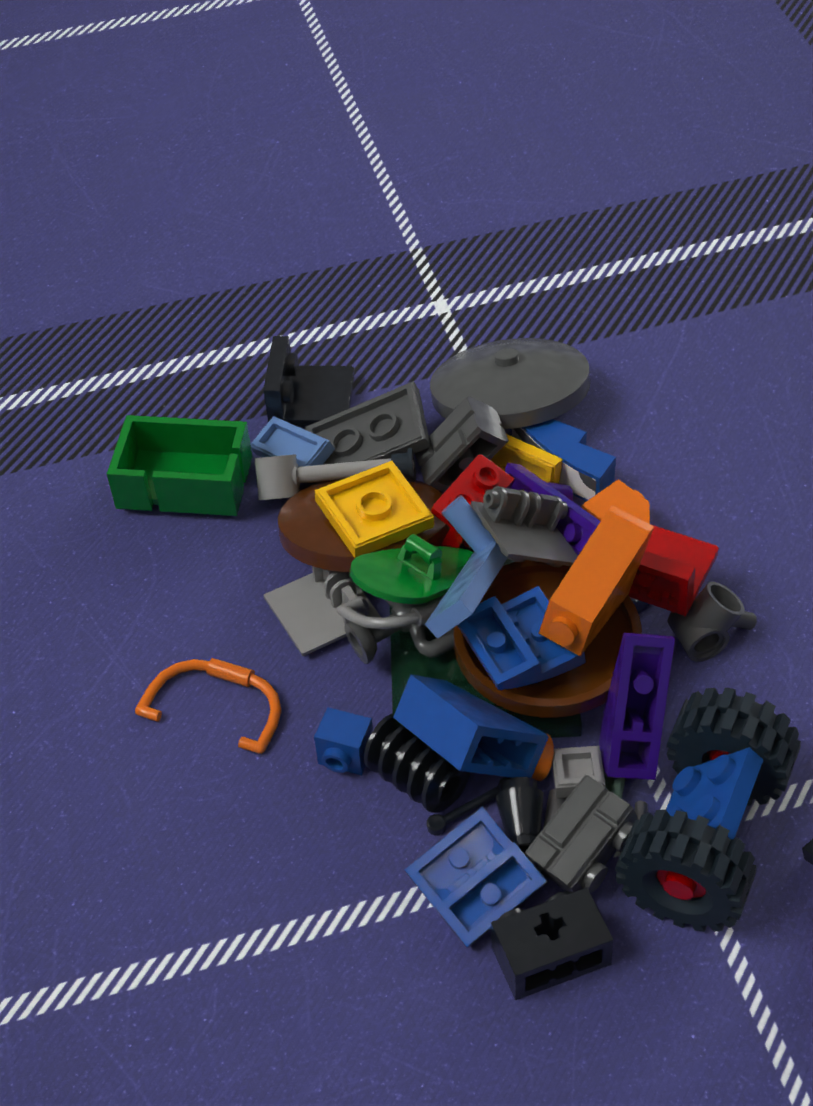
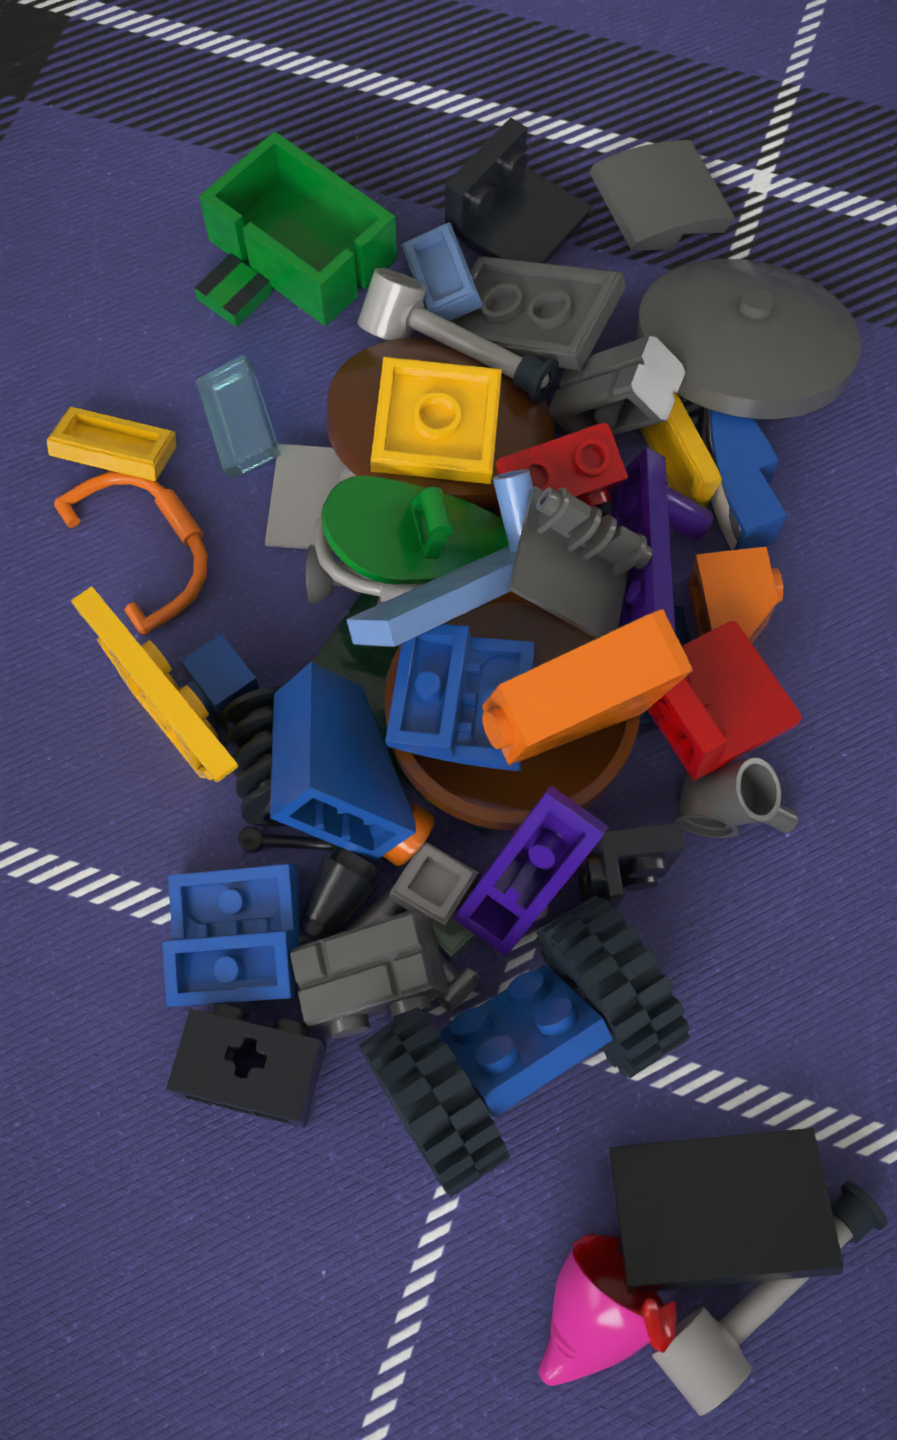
camera: 30 degrees right, 20 degrees up
(149, 653) = (112, 443): none -> yellow tile
(156, 527) = (233, 290): none -> tile
(224, 593) = (237, 417): none -> clear light blue tile
(322, 763) = (148, 678): none -> yellow wing
(390, 339) = (661, 194): none -> dark grey slope
(688, 673) = (629, 861): none -> black bracket

